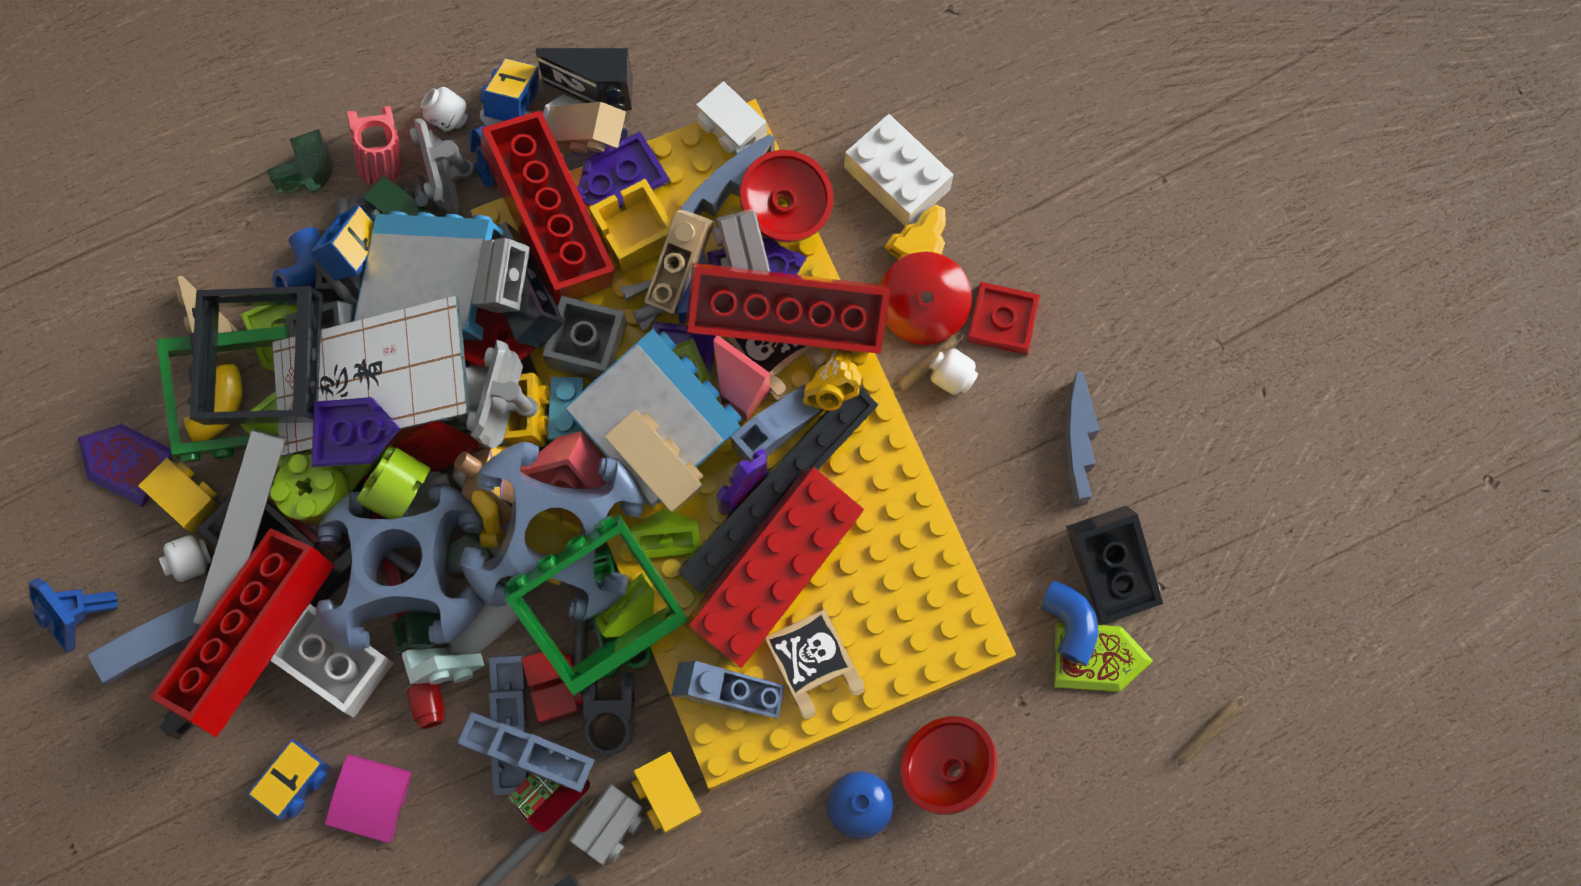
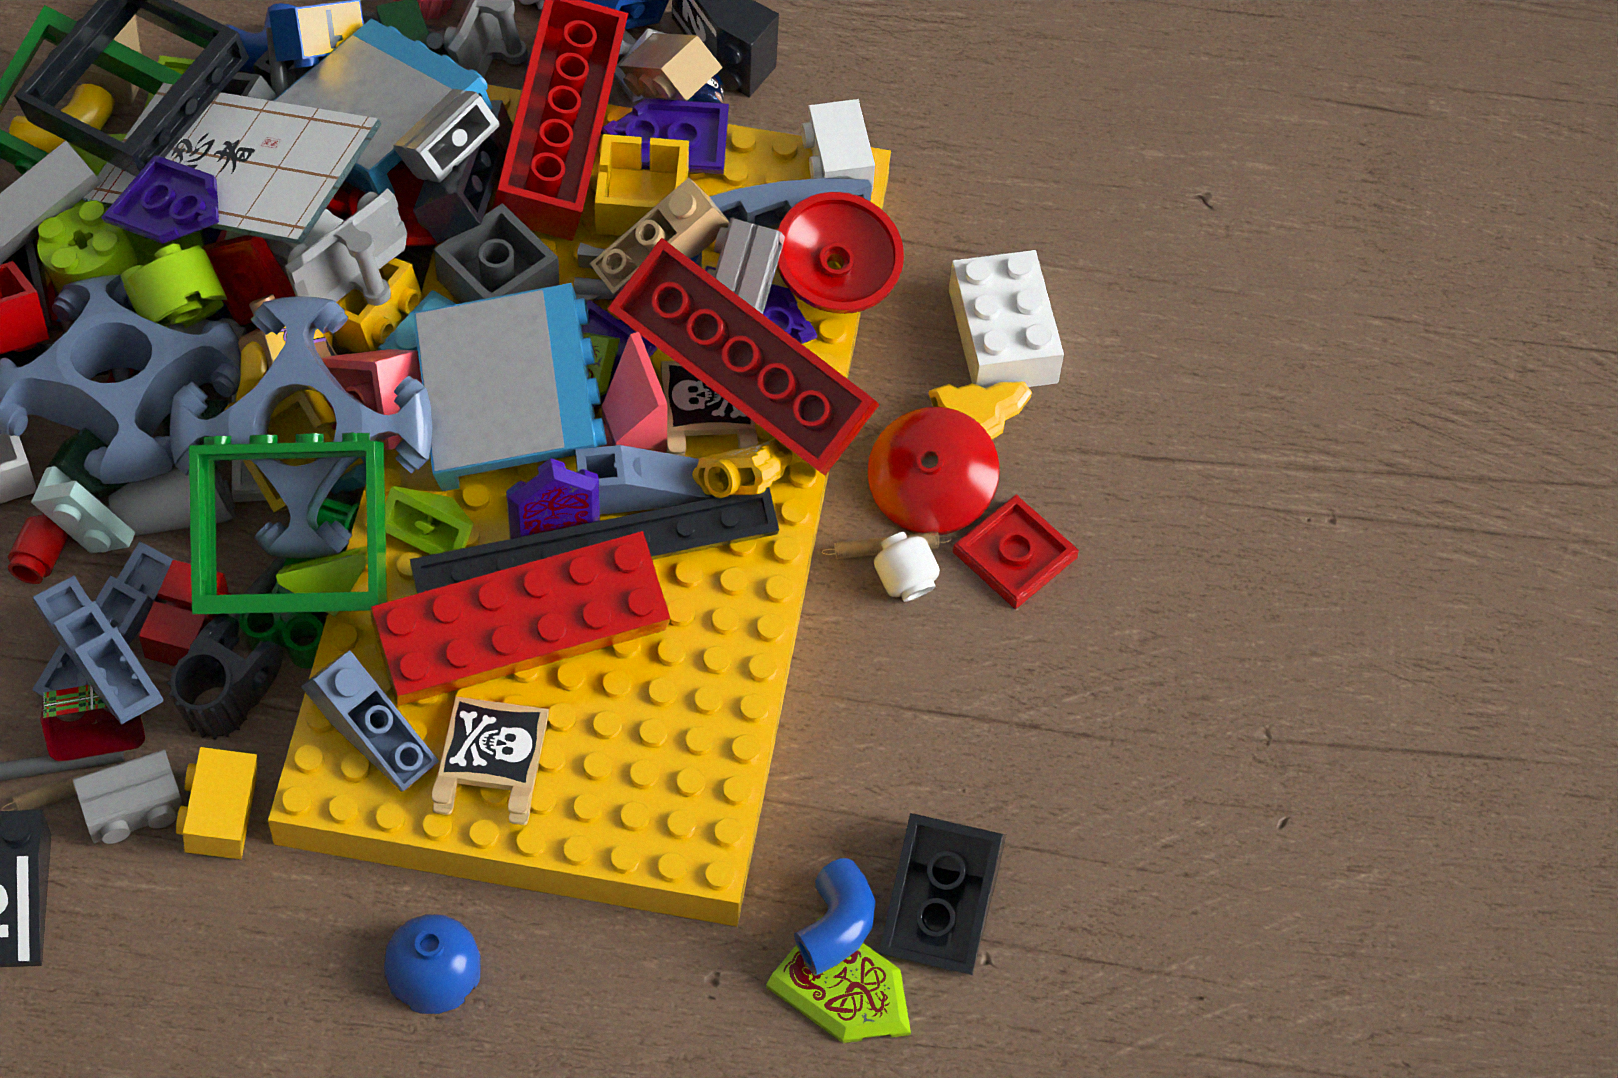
camera: 30 degrees right, 15 degrees down
(655, 460) = (470, 419): tan brick -> none
(937, 753) = (565, 977): red dish -> none
(1080, 429) = (1010, 721): sand blue slope -> none

